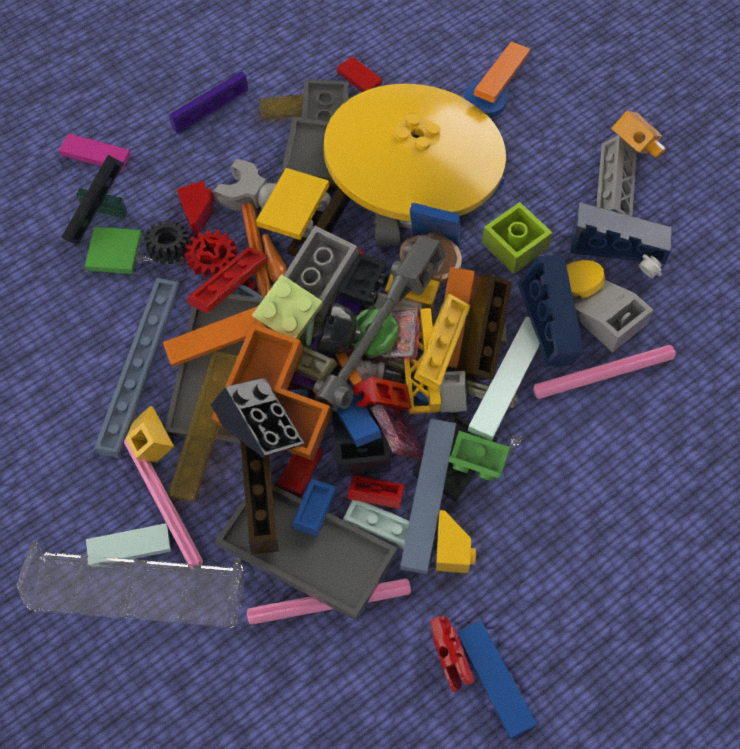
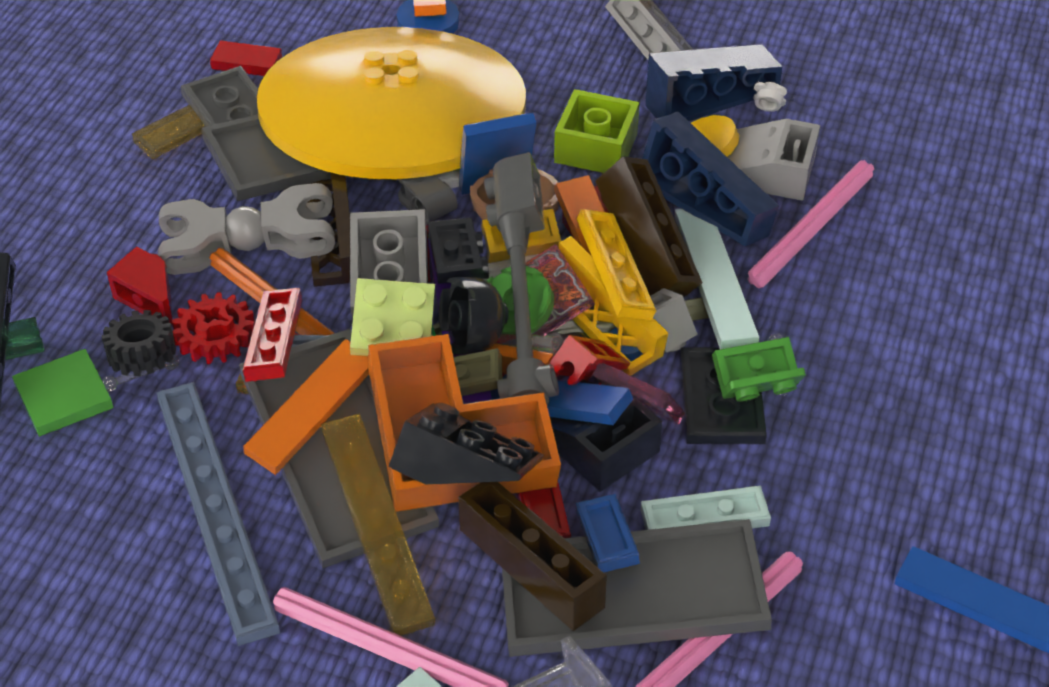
camera: 35 degrees left, 15 degrees down
(148, 437) = (309, 574): yellow slope -> none
(208, 102) = (64, 165): dark purple tile -> none
(275, 263) = (315, 302): orange piece -> none
(292, 203) = (289, 213): yellow tile -> none
(376, 491) = (663, 479): red tile -> none
(428, 497) = (735, 449): sand blue tile -> none
(451, 653) = (891, 594): red hinge -> none
(453, 546) = (807, 484): yellow slope -> none

